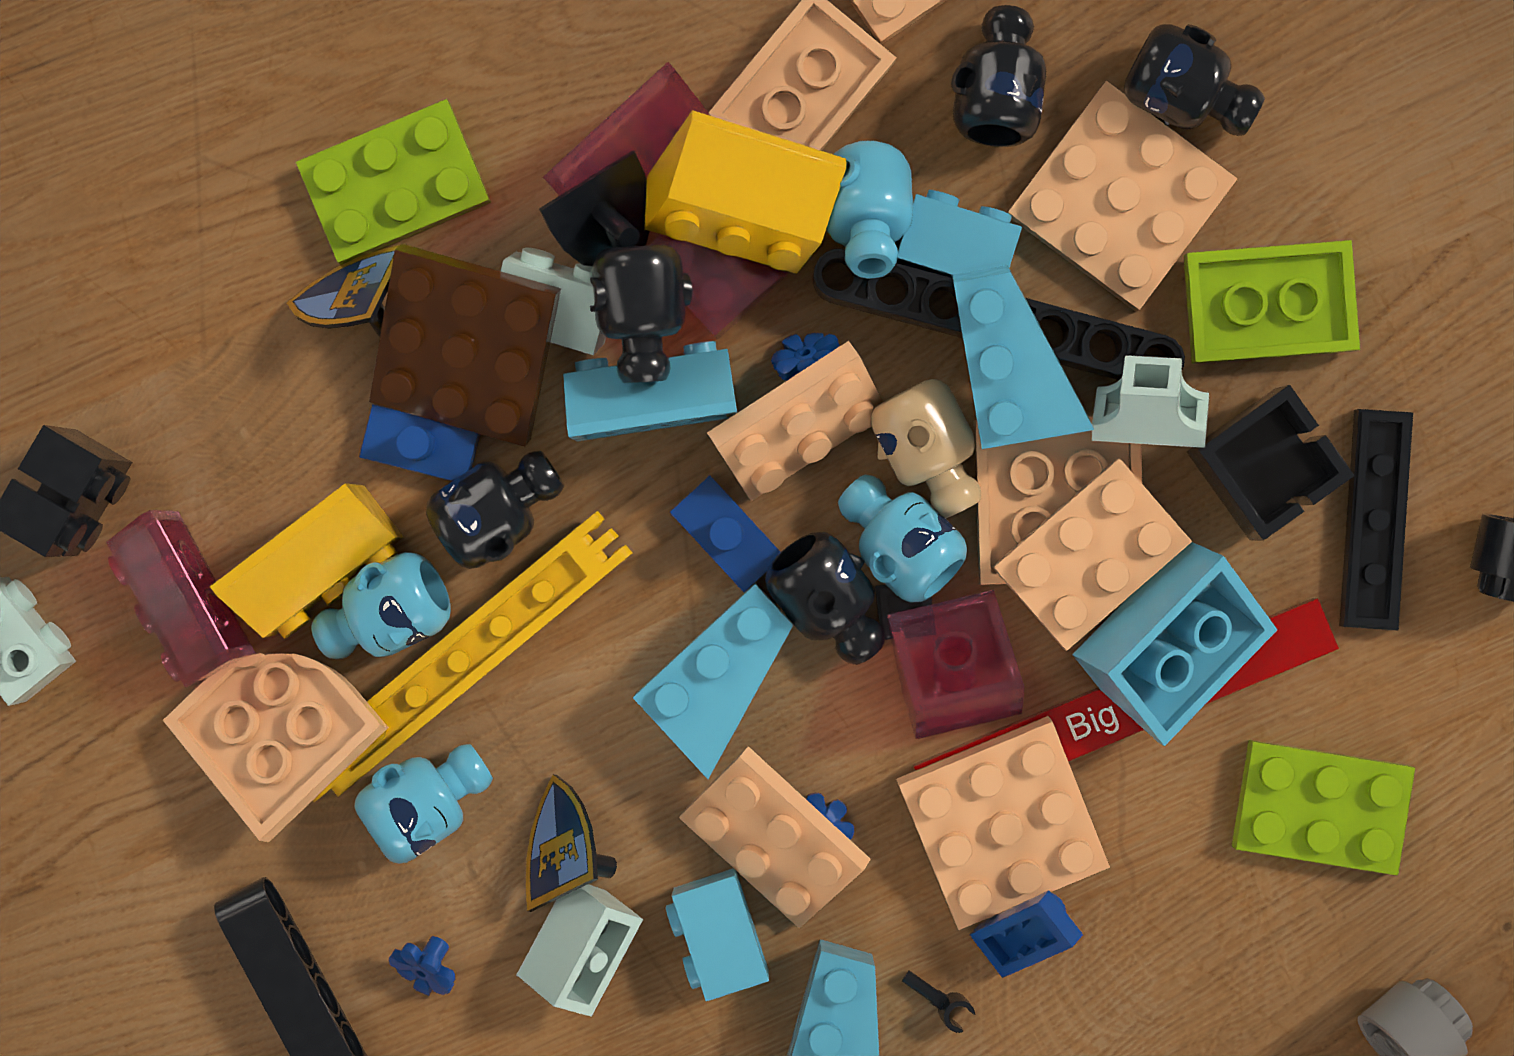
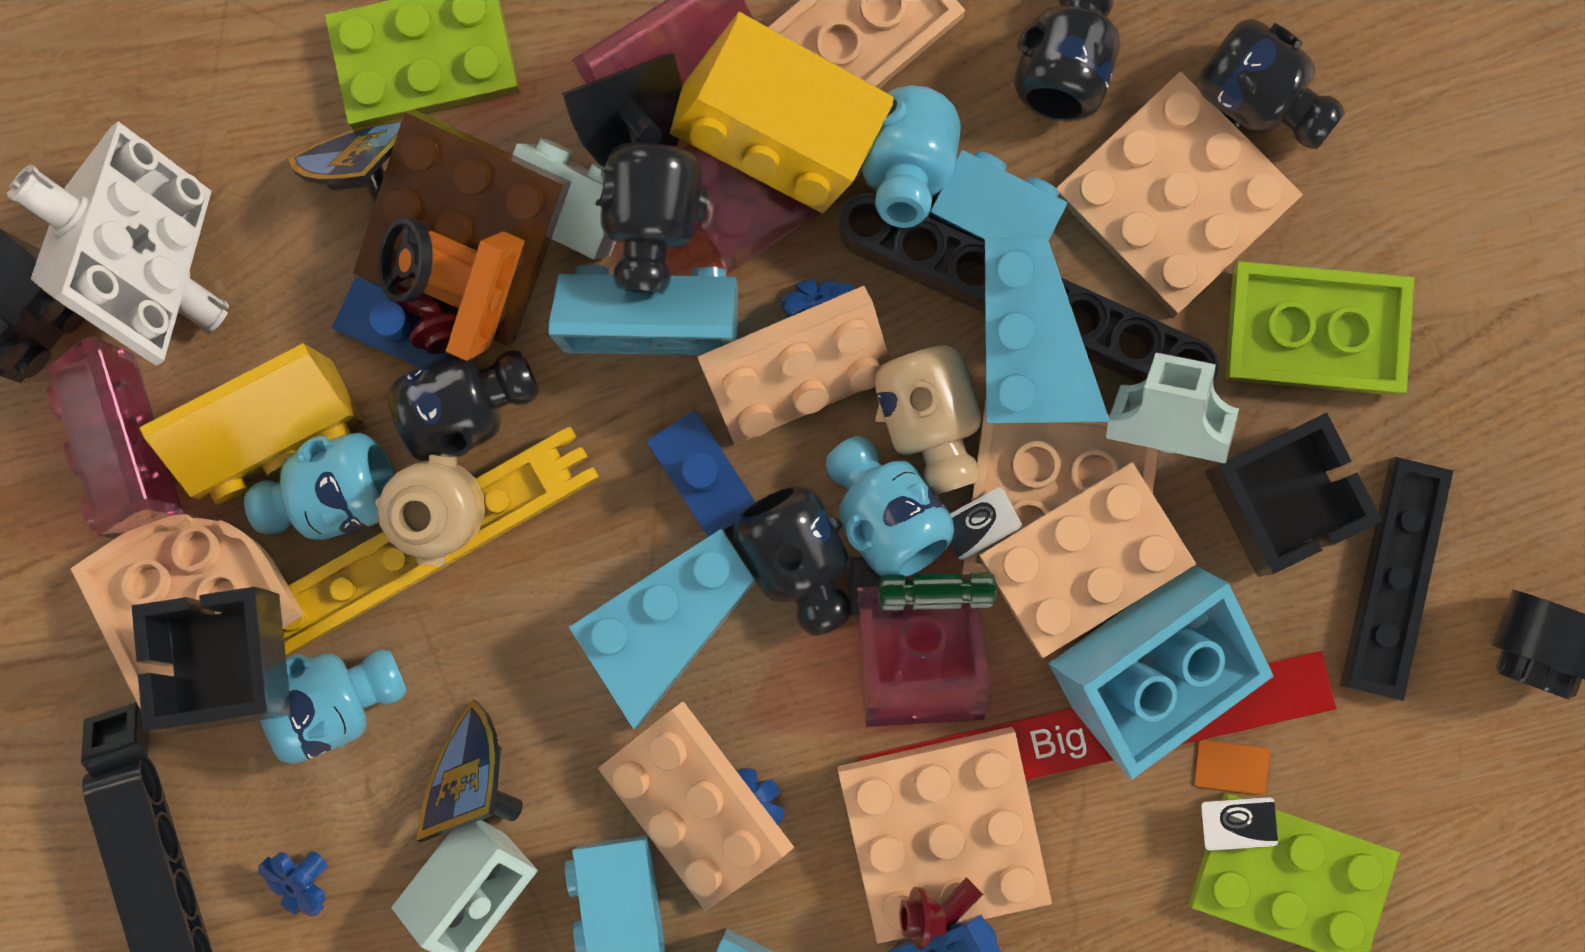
camera: 15 degrees right, 5 degrees down
(157, 416) = (123, 242): none -> white slope
(235, 867) = (113, 739): none -> black tile
(328, 787) = (223, 664): none -> black piece
(459, 443) = (434, 326): none -> dark red plate
(468, 393) = (454, 274): none -> orange piece
(488, 613) = (431, 509): none -> tan piece
(961, 606) = (937, 591): none -> dark green axle
(992, 536) = (983, 523): none -> sticker
(999, 902) = (925, 918): none -> dark red plate
(1252, 716) = (1232, 767): none -> orange sticker
(1267, 767) = (1239, 823): none -> sticker

